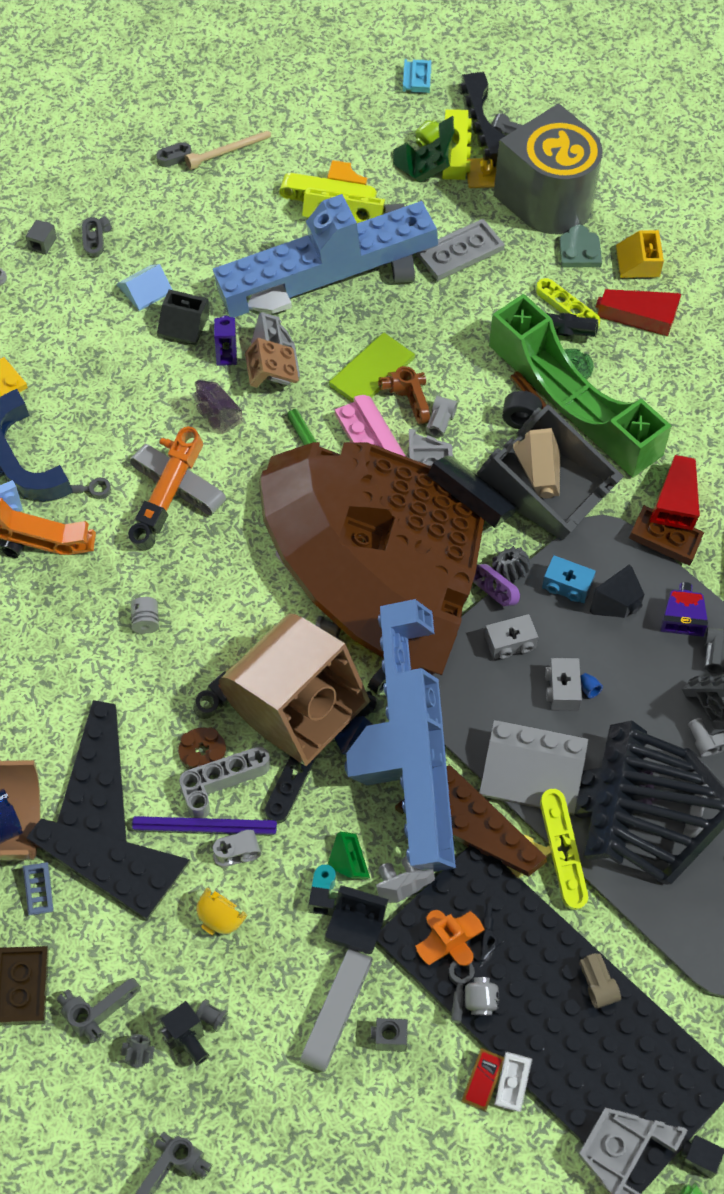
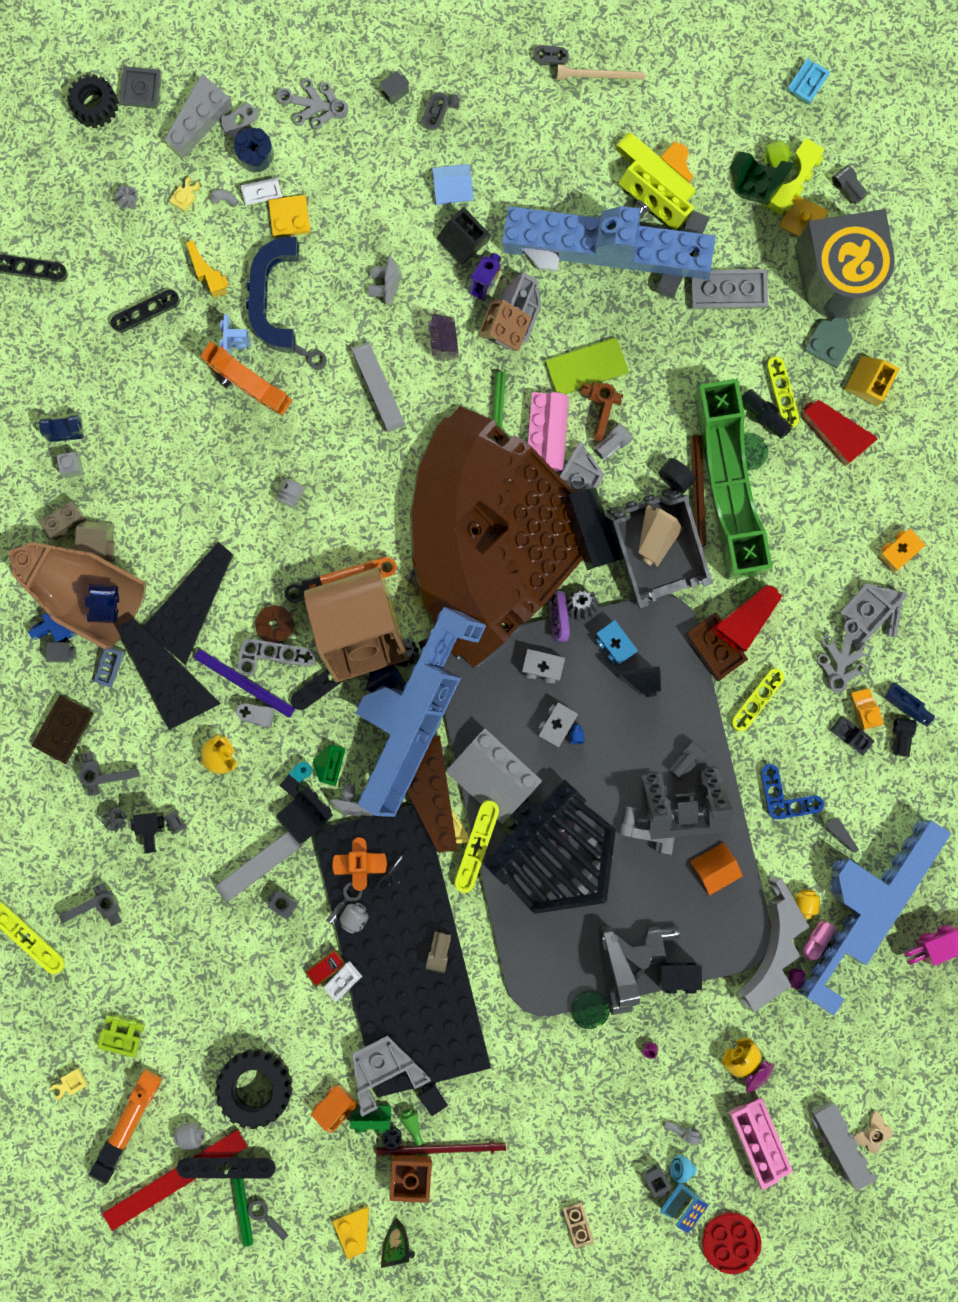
camera: 30 degrees right, 25 degrees up
(133, 379) = (391, 276): none -> light grey connector
(154, 511) = (342, 410): orange piece -> none
(475, 93) = (826, 198): black arch -> none
(685, 612) = (684, 718): dark purple torso -> none

